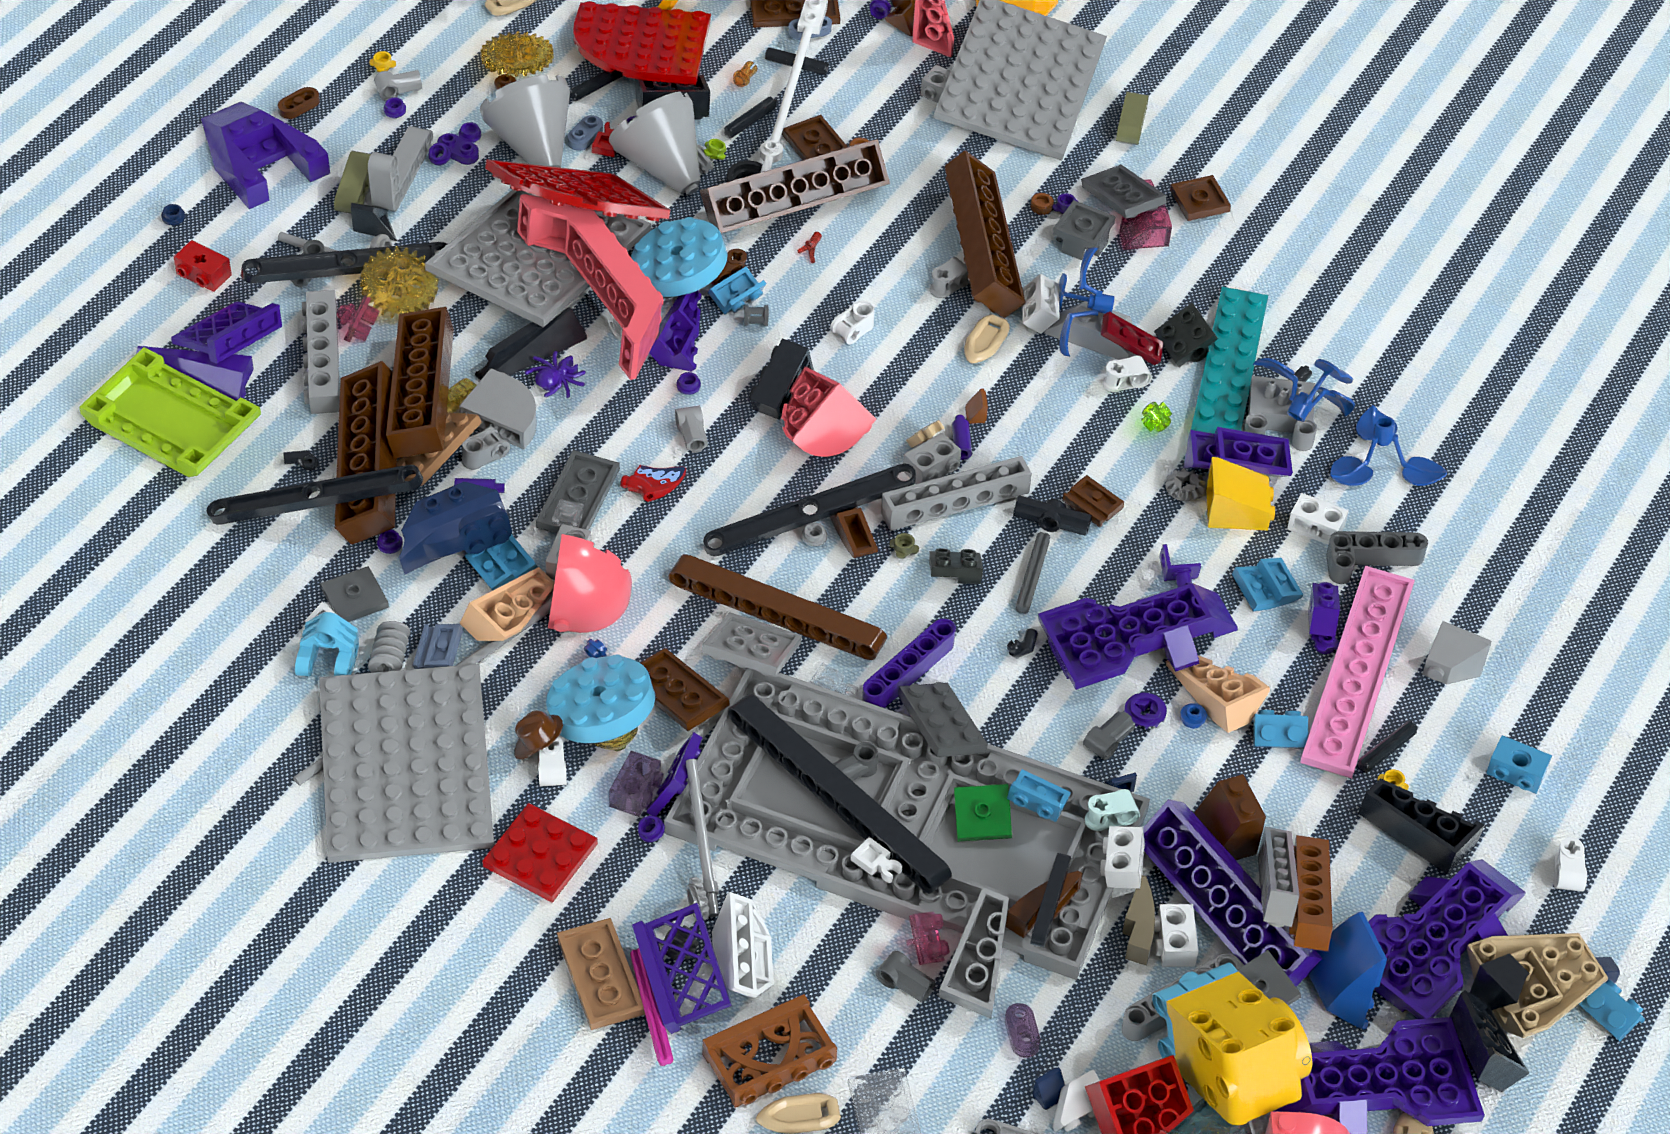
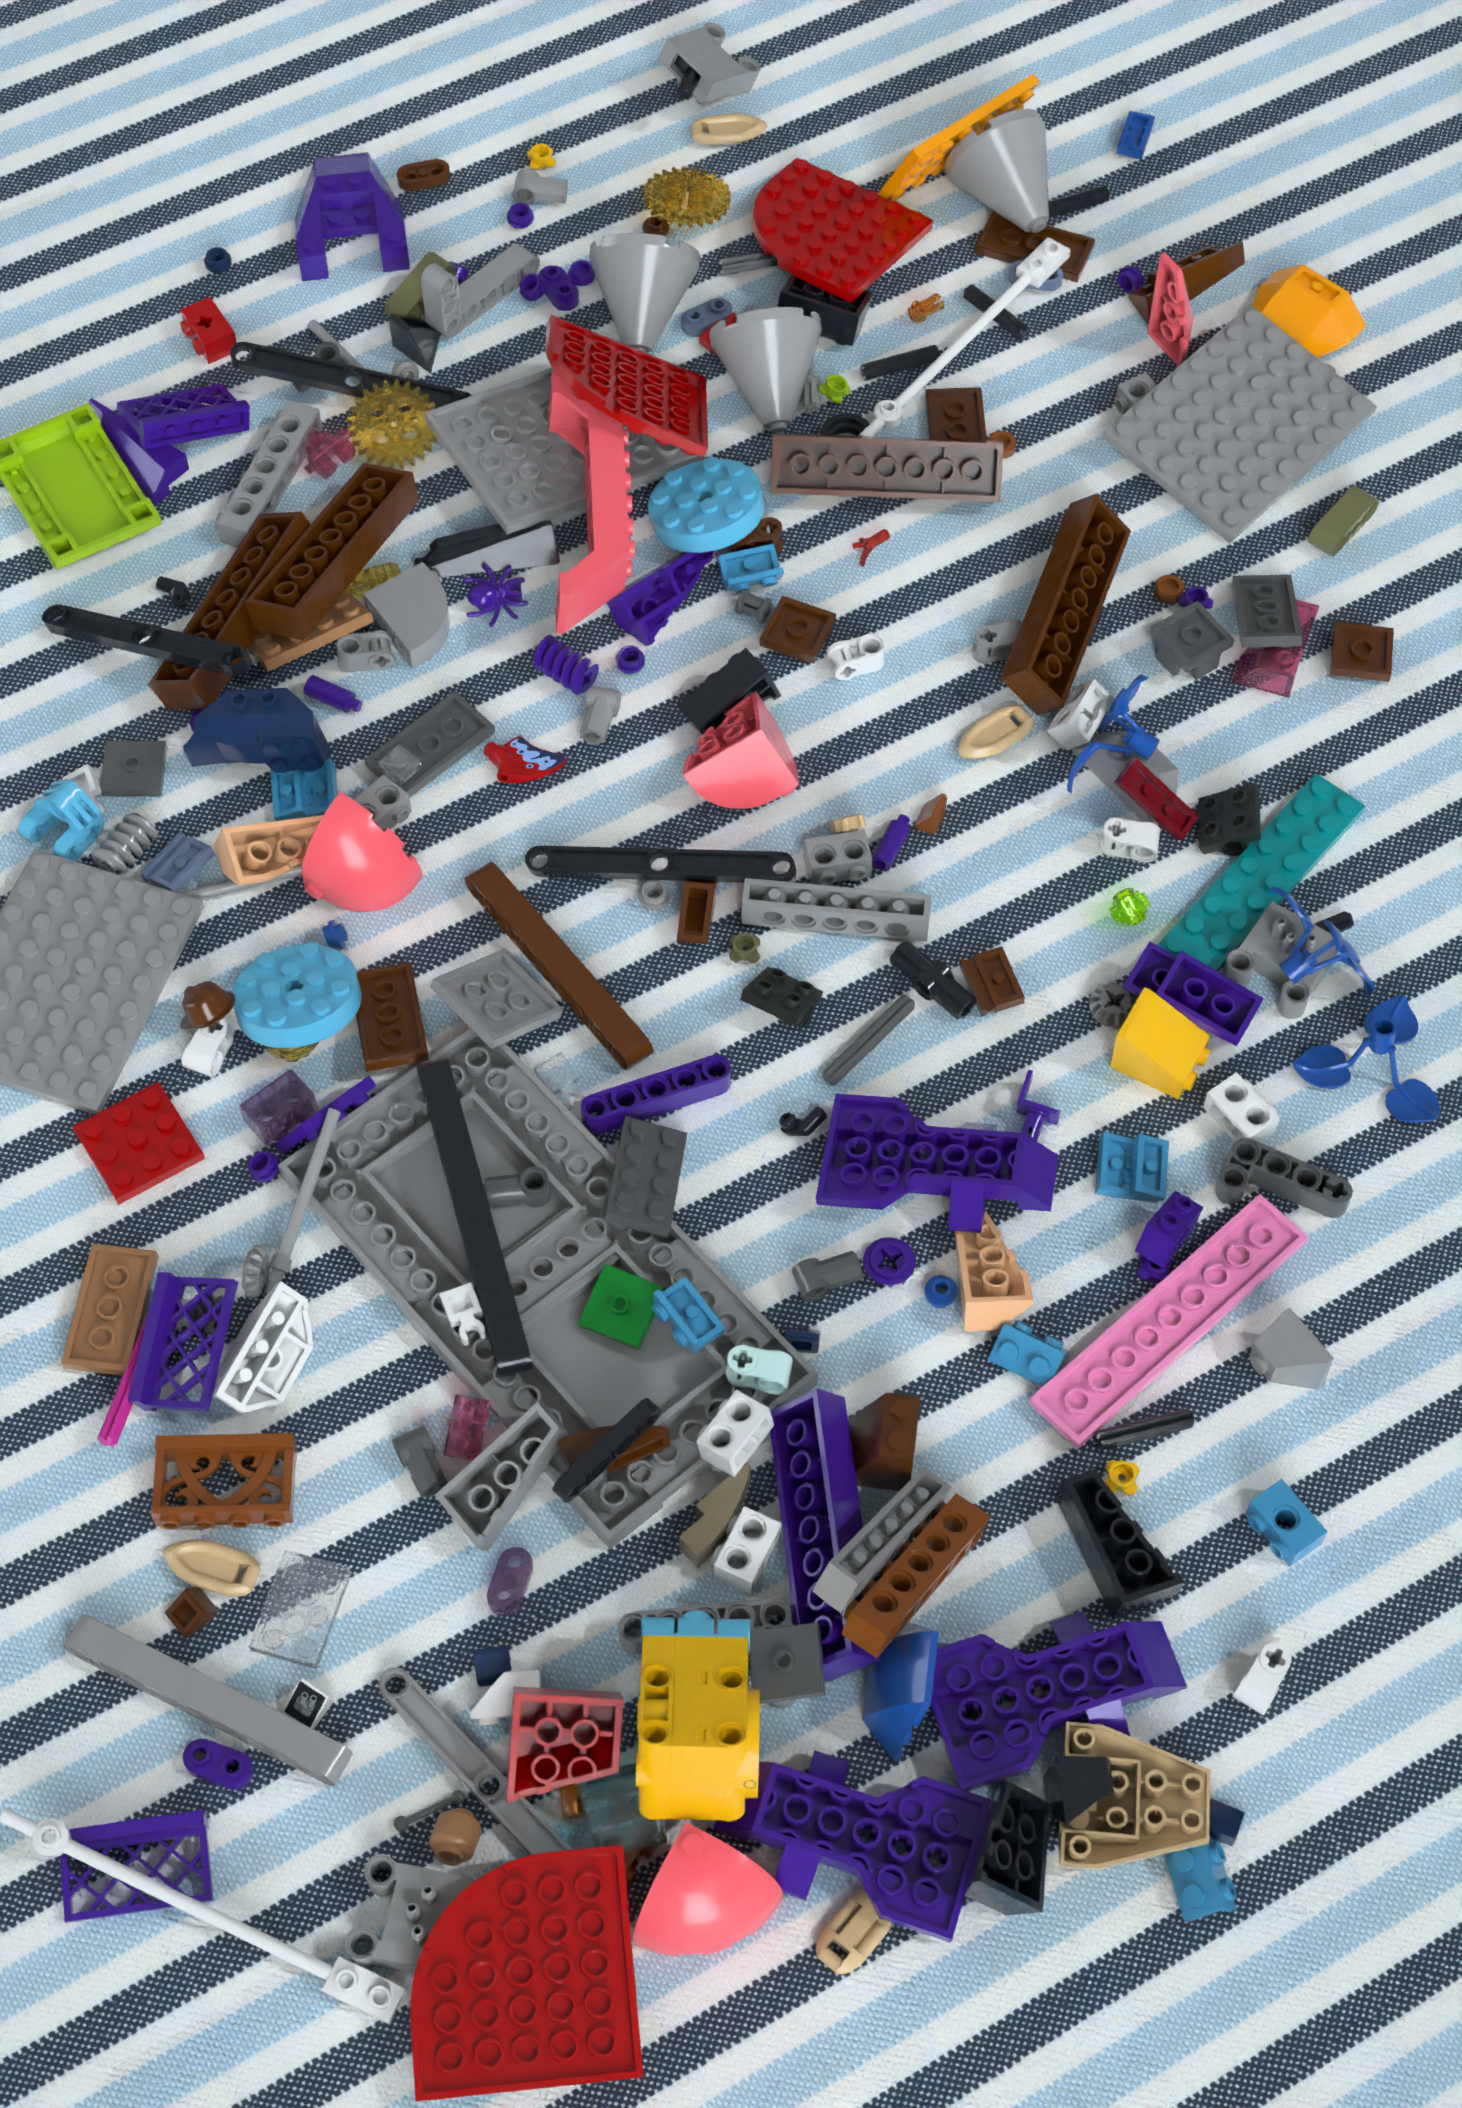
camera: 30 degrees right, 10 degrees up
(644, 404) = (564, 665): none -> dark purple piece
(799, 320) = (797, 629): none -> reddish brown plate

